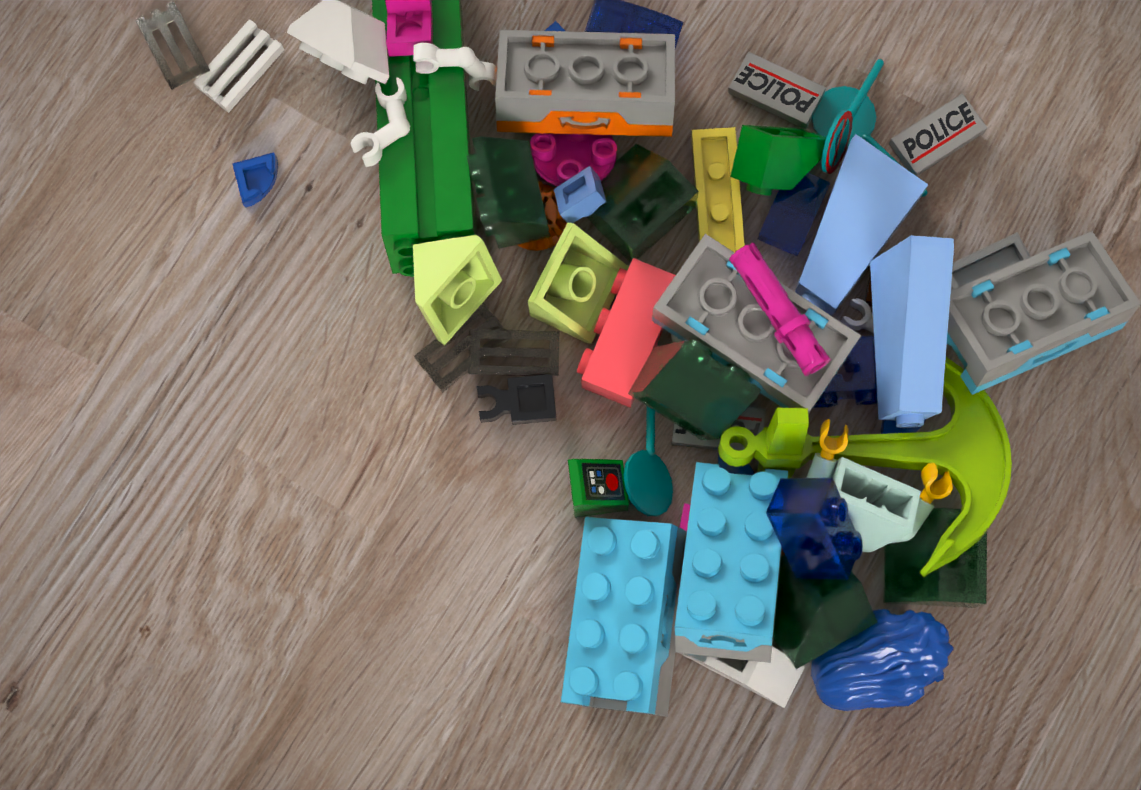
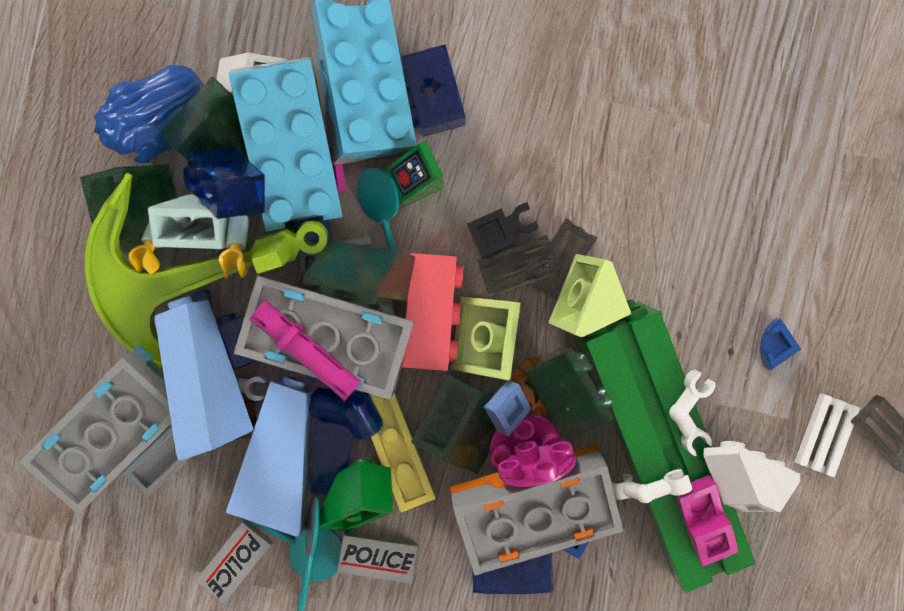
camera: 160 degrees right, 10 degrees up
(534, 557) = (433, 70): none -> clear blue brick
(569, 123) = (537, 464): none -> dark pink dish
(746, 228) = (356, 412): none -> clear blue piece

